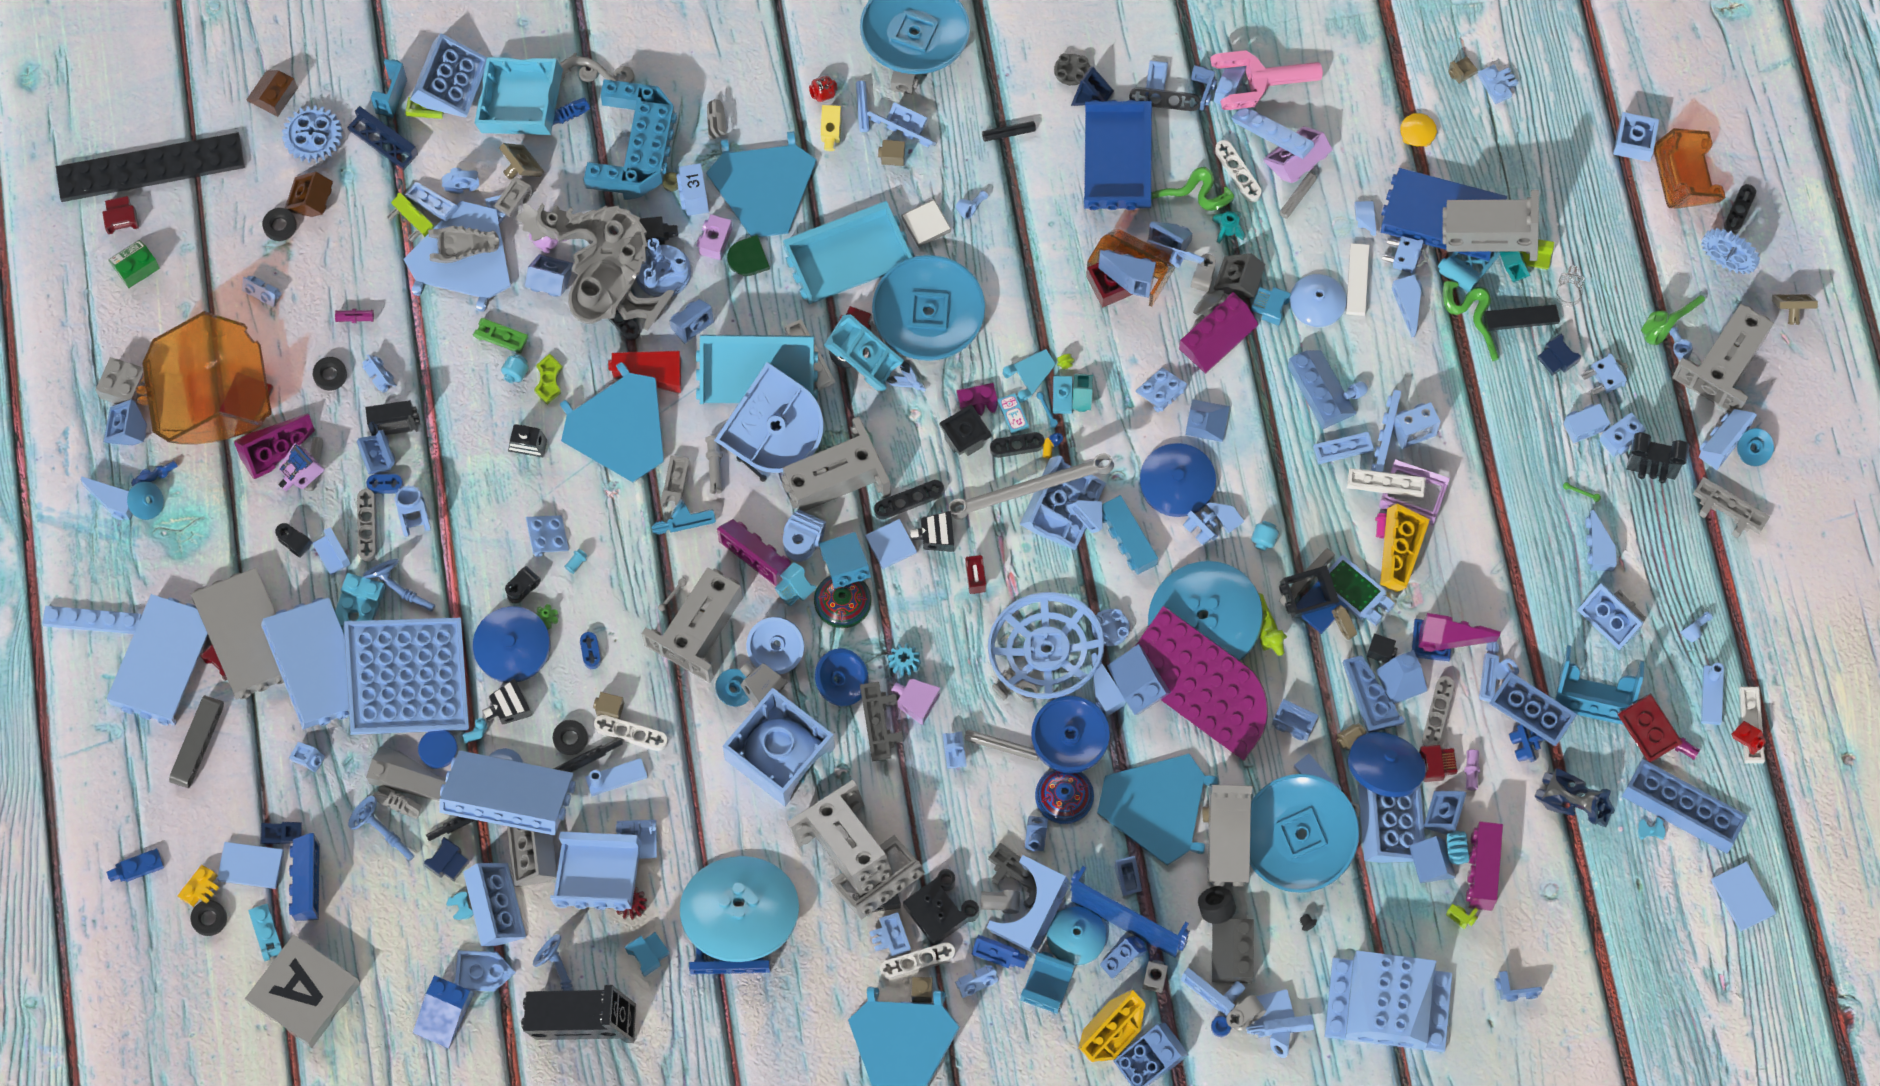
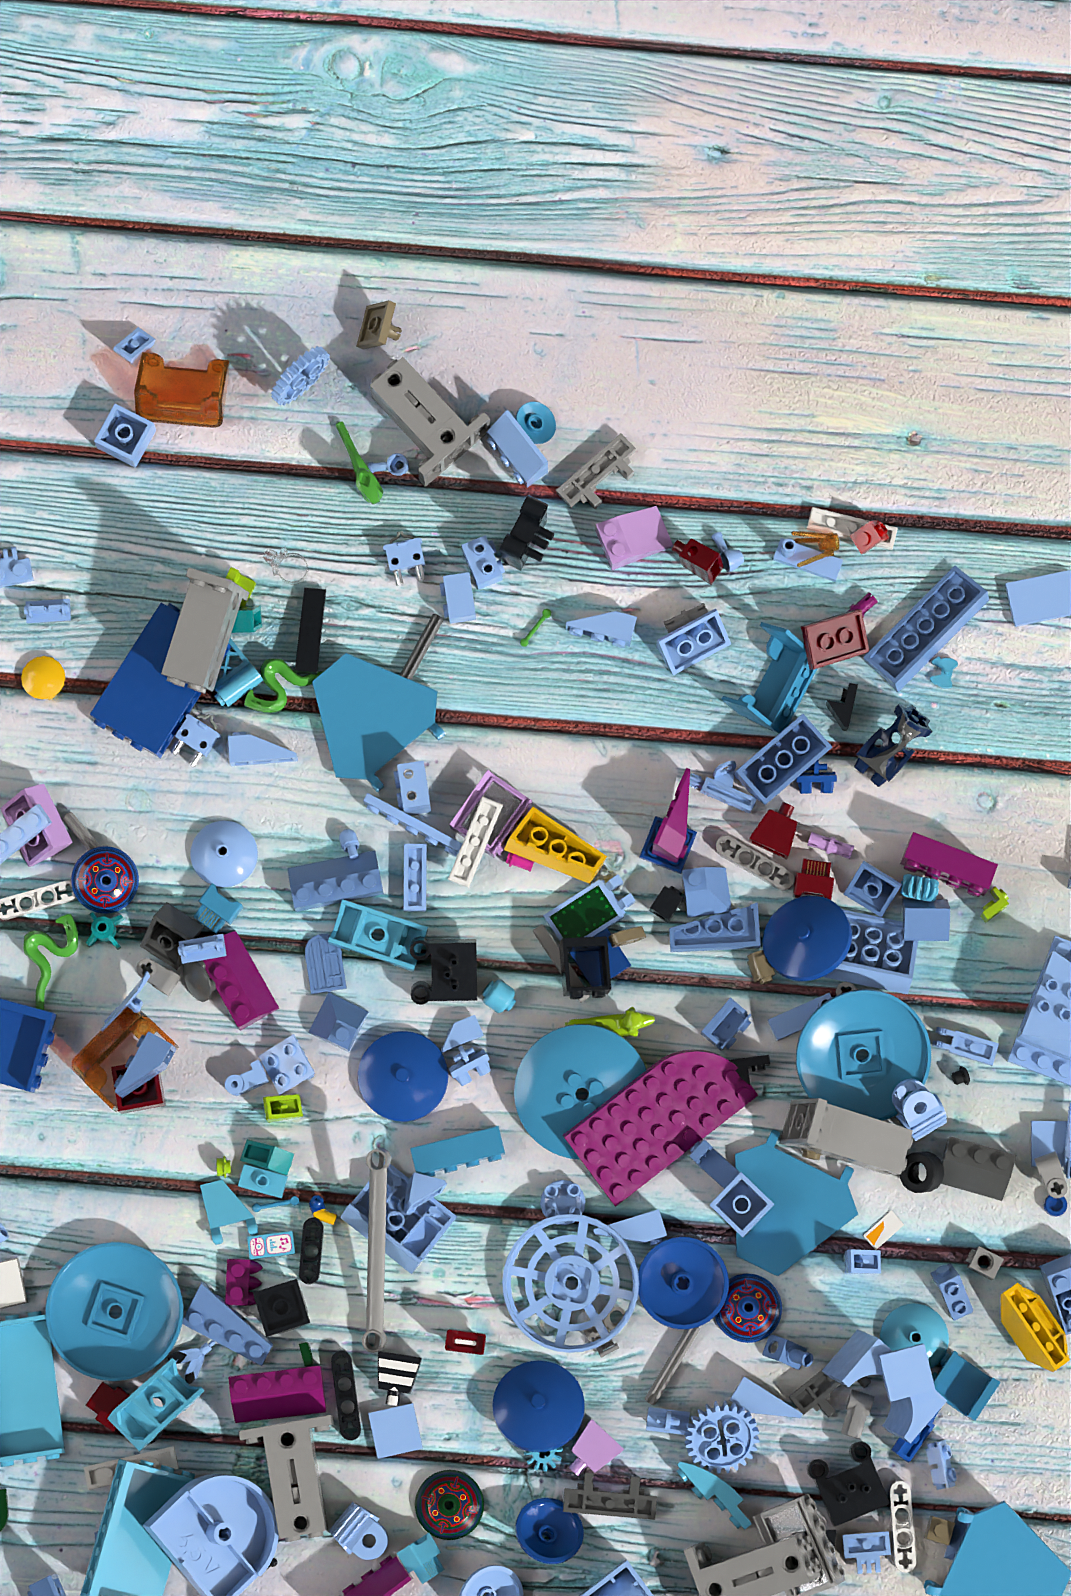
camera: 75 degrees left, 10 degrees up
(845, 560) = (406, 1491): dark azure panel -> none
(896, 446) = (277, 1394): none -> magenta slope
(910, 796) = (707, 1485): none -> medium azure slope
(933, 460) = (306, 1354): none -> dark green tile
(939, 394) = (219, 1322): none -> medium blue wing
(939, 645) = (538, 1406): none -> blue dish
(959, 810) = (701, 1441): none -> light blue gear
(990, 817) = (761, 1401): none -> light blue slope
(1043, 906) = (906, 1372): none -> light blue tile
(1125, 392) = (282, 1107): none -> lime slope
(1127, 918) = (914, 1273): blue panel -> none
(1138, 680) = (639, 1188): medium blue slope -> none
(1140, 362) = (247, 1081): none -> light blue leg
(1148, 764) = (741, 1204): none -> light blue brick
(1159, 890) = (883, 1230): none -> white sticker
(1170, 235) = (102, 1000): medium blue slope -> none
(1176, 736) = (713, 1163): none -> medium blue bracket
(1221, 1003) = (1032, 1195): light blue piece -> none
(1234, 294) = (202, 948): none -> light blue hinge
(1251, 398) = (324, 965): none -> medium blue window
(1264, 894) = (919, 1110): none -> light blue piece
(1265, 742) = (756, 1063): none -> black slope
(1274, 227) = (88, 877): none -> dish
(1276, 491) = (452, 970): none -> black piece
(1283, 448) = (355, 929): none -> medium azure piece
(1334, 922) = (968, 1046): none -> light blue hinge
(1357, 279) = (211, 801): white tile -> none
(1366, 215) = (135, 769): light blue slope -> none
(1465, 381) = (371, 716): none -> dark azure flag
(1470, 721) = (776, 831): none -> dark red torso
(1473, 119) = (47, 611): none -> light blue hinge
(1520, 403) = (422, 646): none -> dark grey axle
(1558, 356) = (368, 604): dark blue piece -> none
(1590, 753) = (841, 711): none -> black slope
(1682, 600) = (699, 559): none -> dark red torso
(1684, 548) = (633, 536): none -> lavender slope
(1711, 122) = (133, 345): none -> light blue slope
(1732, 704) = (826, 541): none -> clear orange plant
(1738, 201) = (226, 342): black beam -> none

